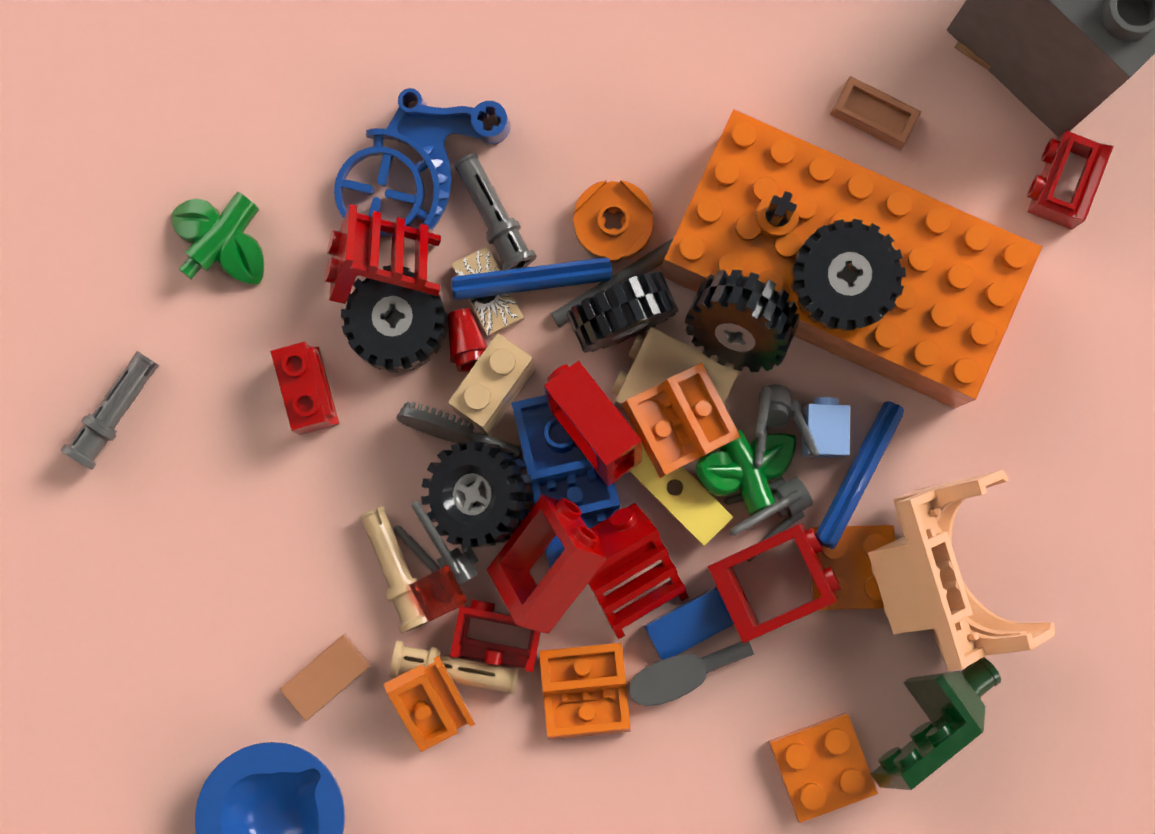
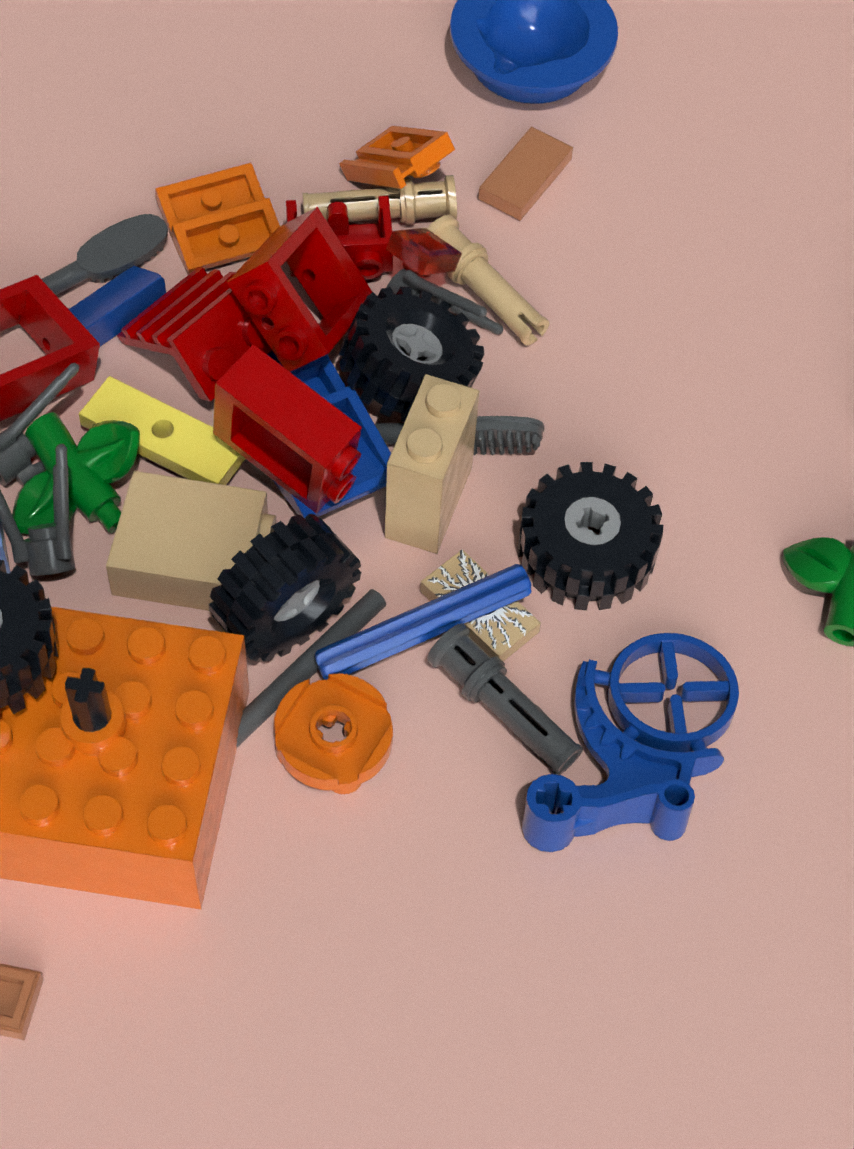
camera: 160 degrees right, 25 degrees down
(304, 388) = (680, 430): red window -> none
(357, 253) = (668, 576): red plate -> none
(464, 339) = (485, 533): red cone -> none
(680, 420) = (172, 480): orange slope -> none
(742, 321) = (116, 583): black wheel -> none

